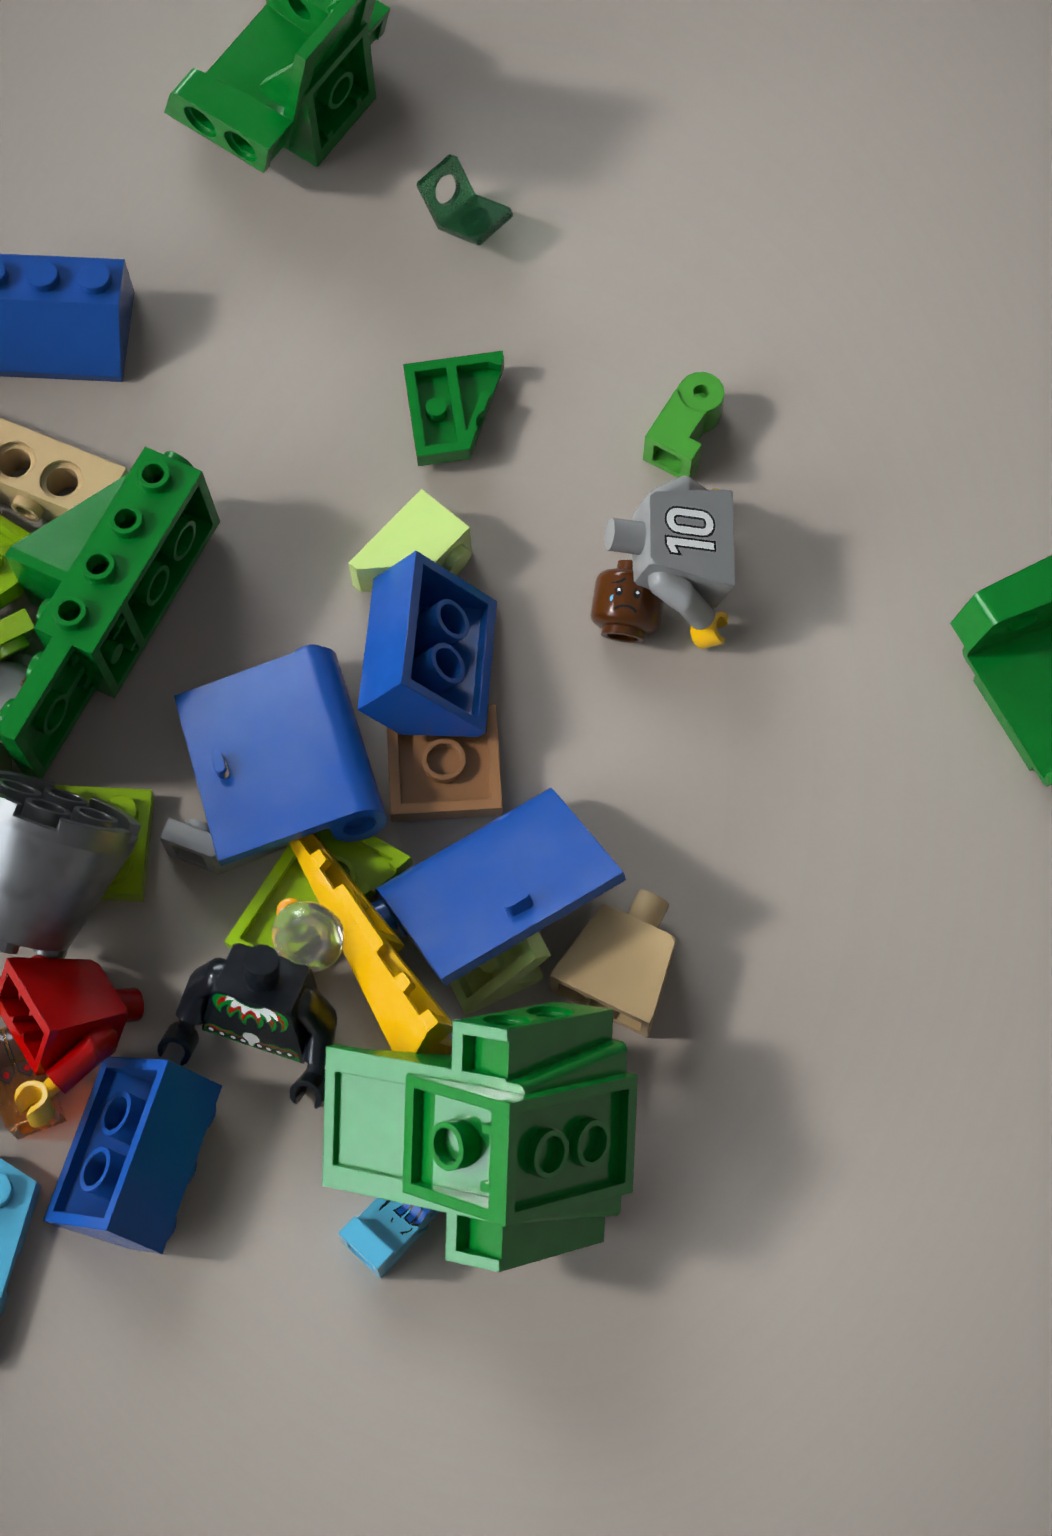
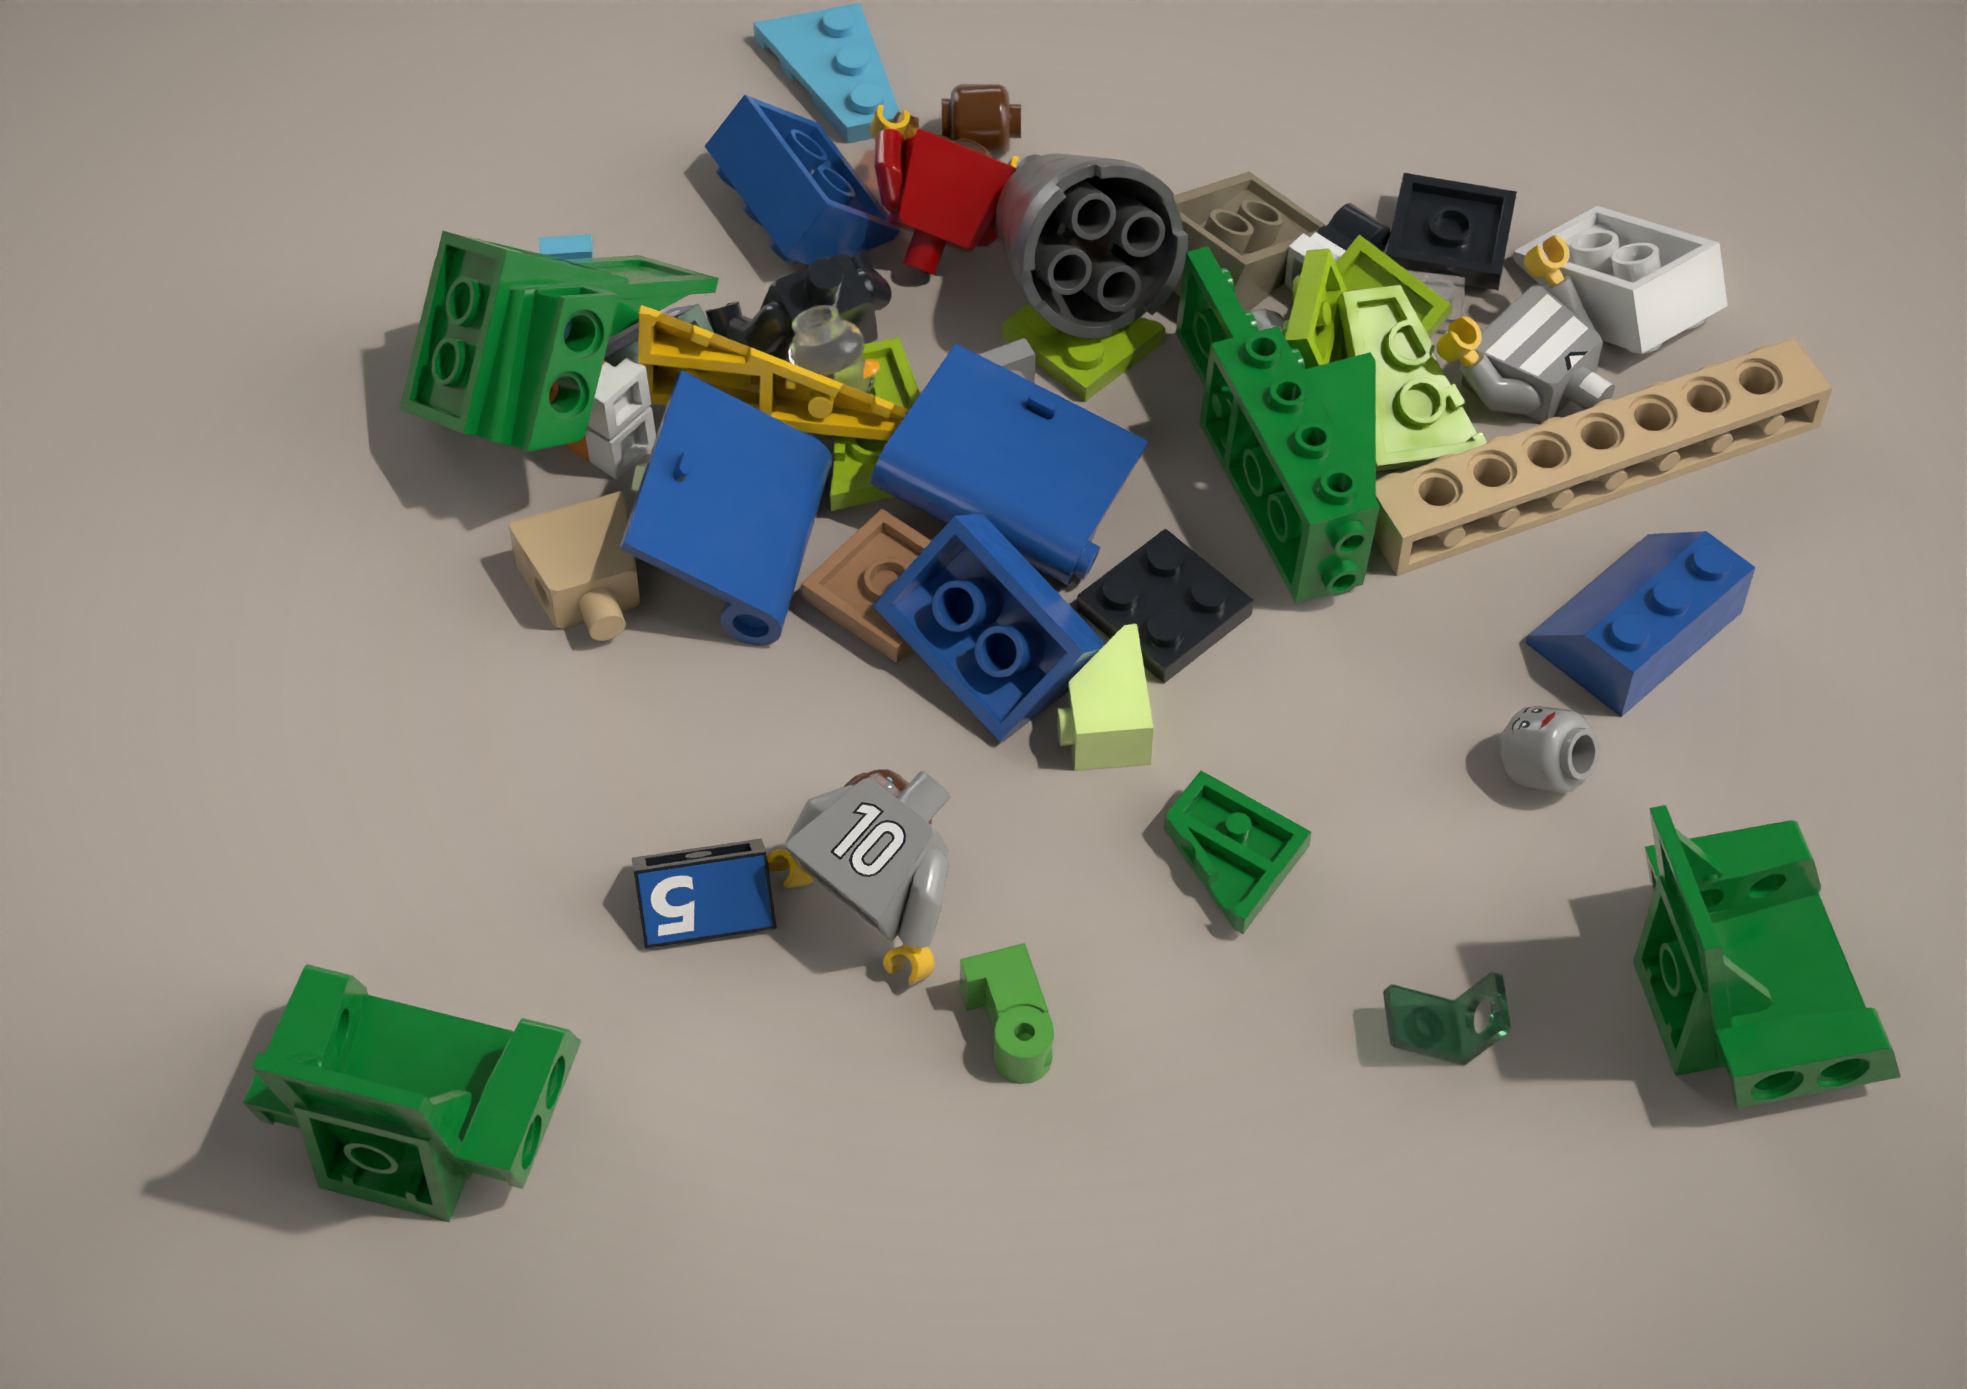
camera: 130 degrees right, 15 degrees down
(215, 286) = (1548, 749): none -> light grey head
(293, 595) = (1172, 598): none -> black plate
(774, 667) = (704, 893): none -> blue panel

